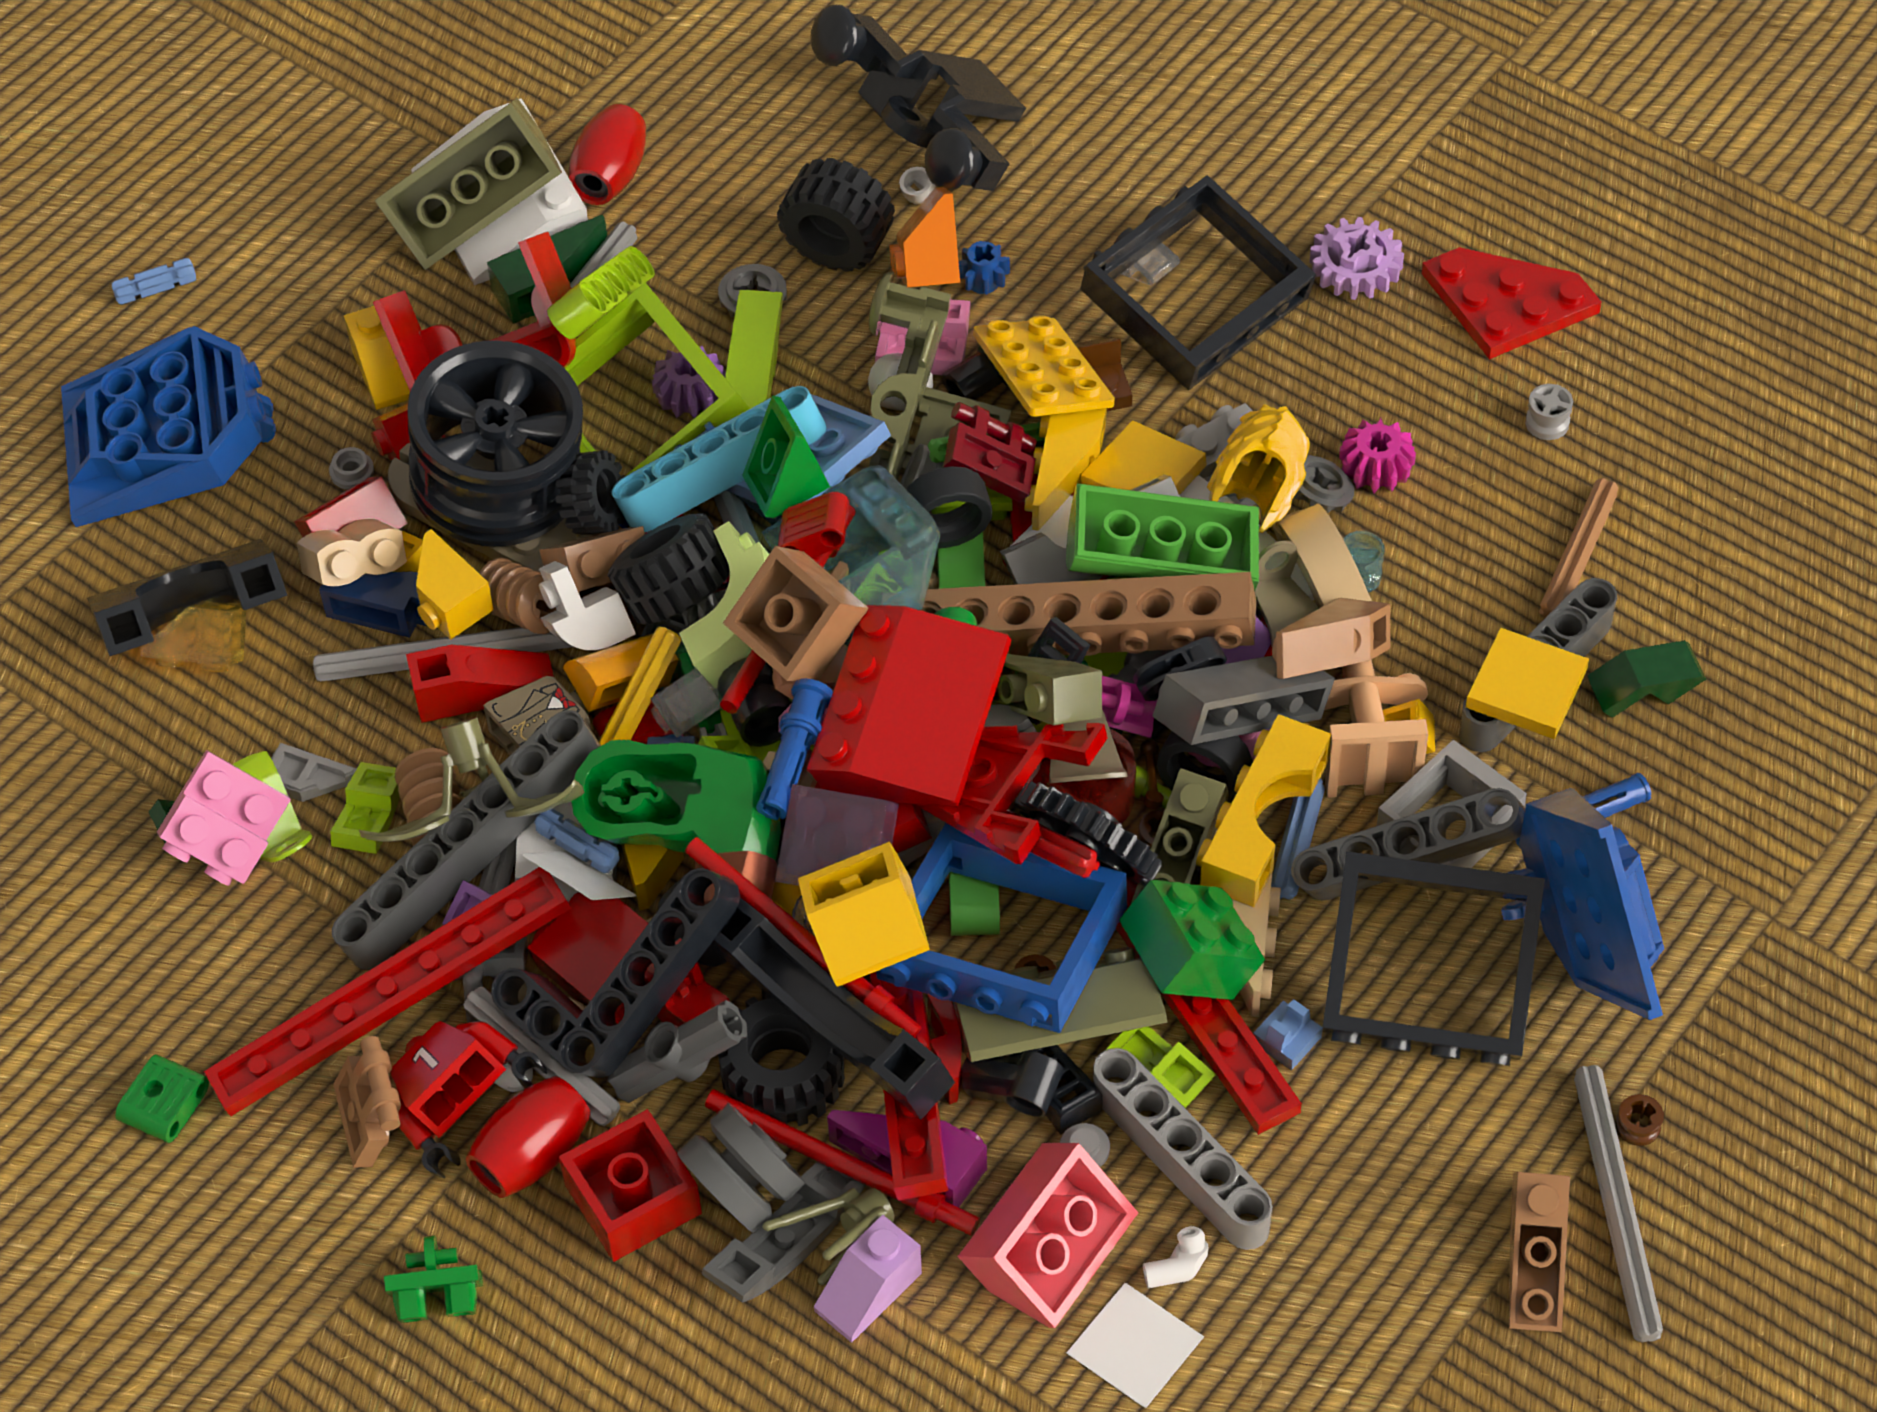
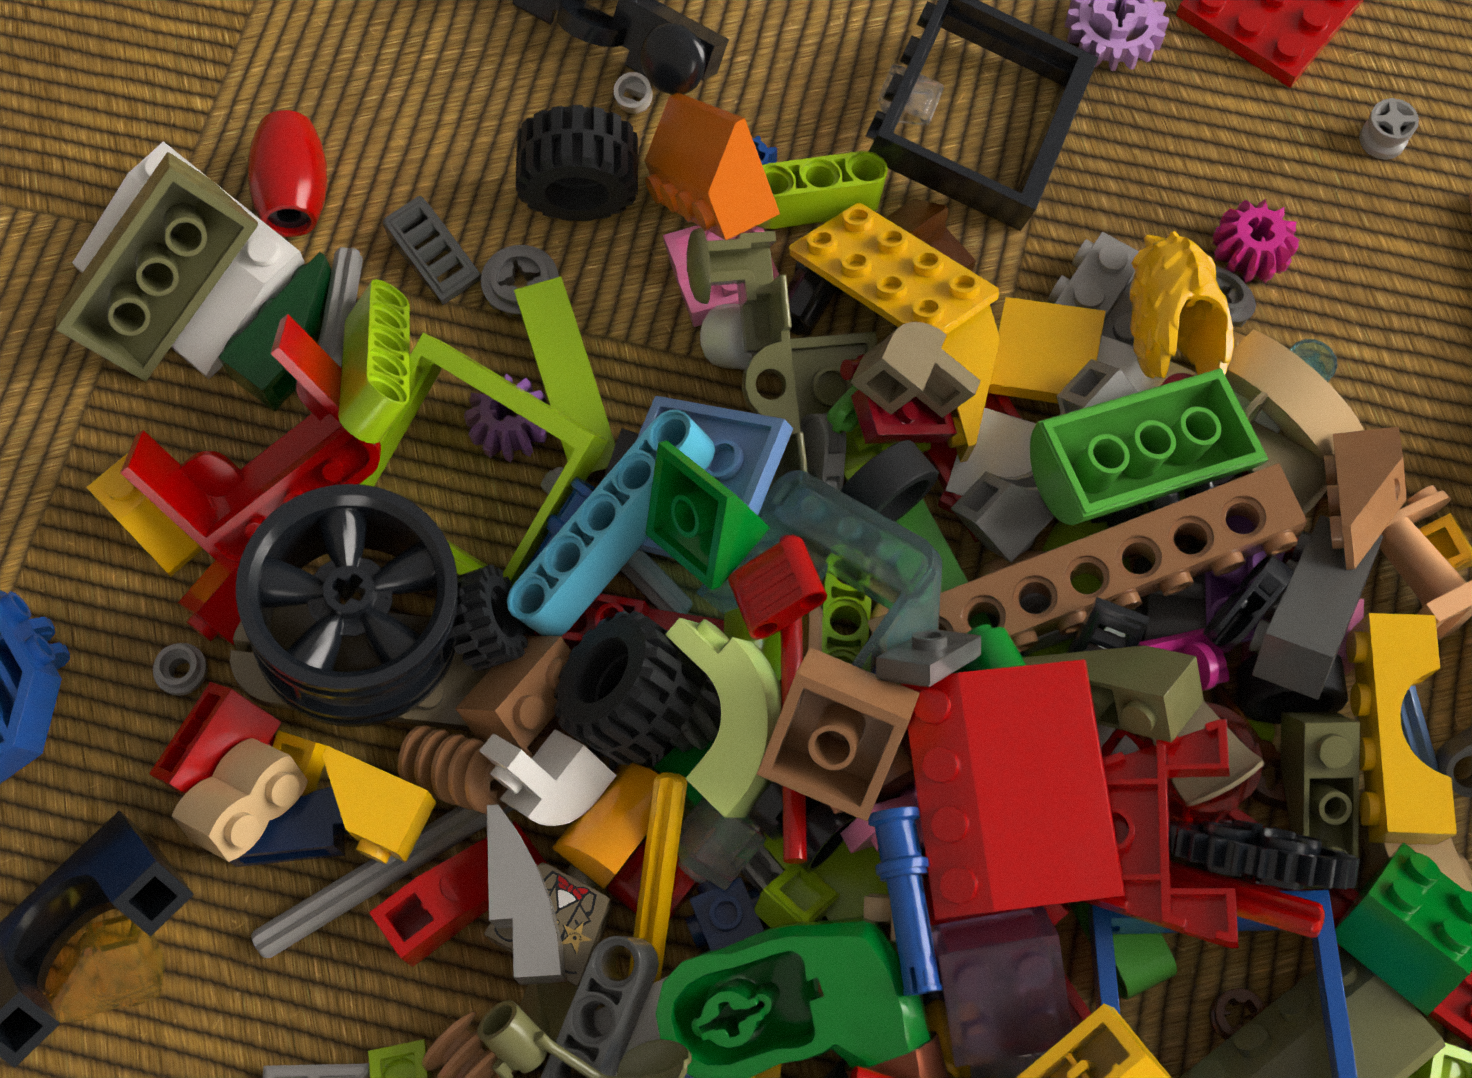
camera: 25 degrees left, 15 degrees up
(518, 685) = (523, 903): none -> light grey slope
(686, 223) = (415, 224): none -> dark grey slope
(891, 589) = (928, 657): none -> dark grey plate
(1007, 415) = (911, 366): none -> dark tan brick
(1017, 294) = (824, 186): none -> lime beam

